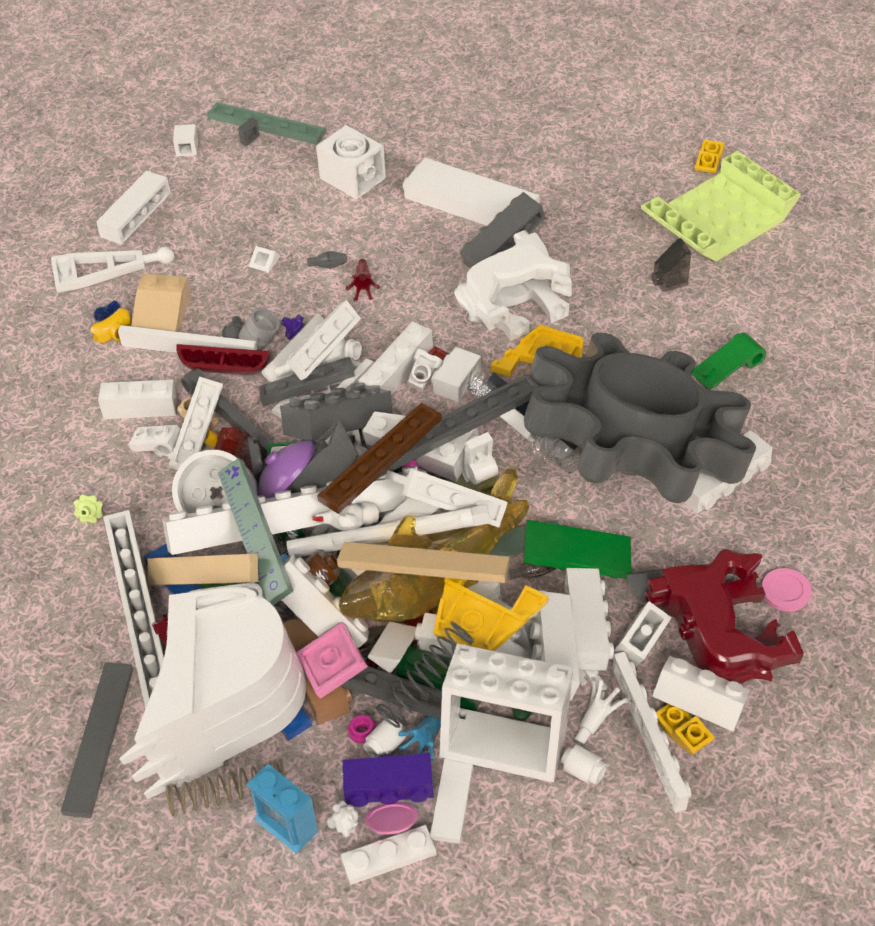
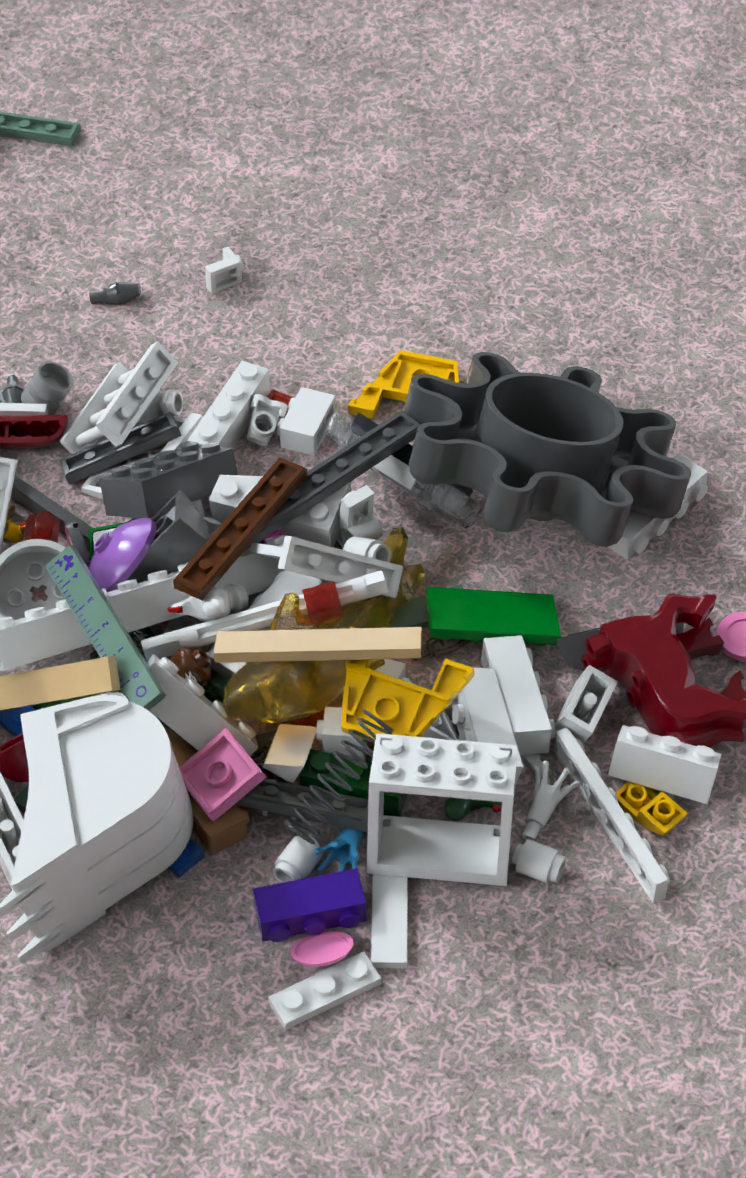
camera: 10 degrees left, 0 degrees up
(169, 791) = (52, 961): dark tan piece -> none
(263, 259) = (32, 300): white slope -> none
(283, 808) = (193, 951): dark azure window -> none
(292, 325) = (88, 381): dark purple plant -> none
(343, 818) = (265, 956): white plant -> none
(351, 161) = (124, 165): white brick -> none
(360, 722) = (262, 846): dark pink plate -> none
(362, 280) = (166, 314): dark red piece -> none
(413, 251) = (224, 272): none -> white bracket
(434, 526) = (322, 603): none -> clear red plate
(459, 191) = (286, 196): white brick -> none
(482, 484) = (368, 547): none -> white brick
(498, 235) = (336, 241): dark grey brick -> none
(514, 279) = (360, 296): white piece -> none
(672, 267) = (554, 264): clear smoke slope -> none
(709, 156) = (578, 120): yellow slope -> none
(726, 208) = (609, 183): yellowish green slope -> none
(738, 351) = (644, 365): green door -> none

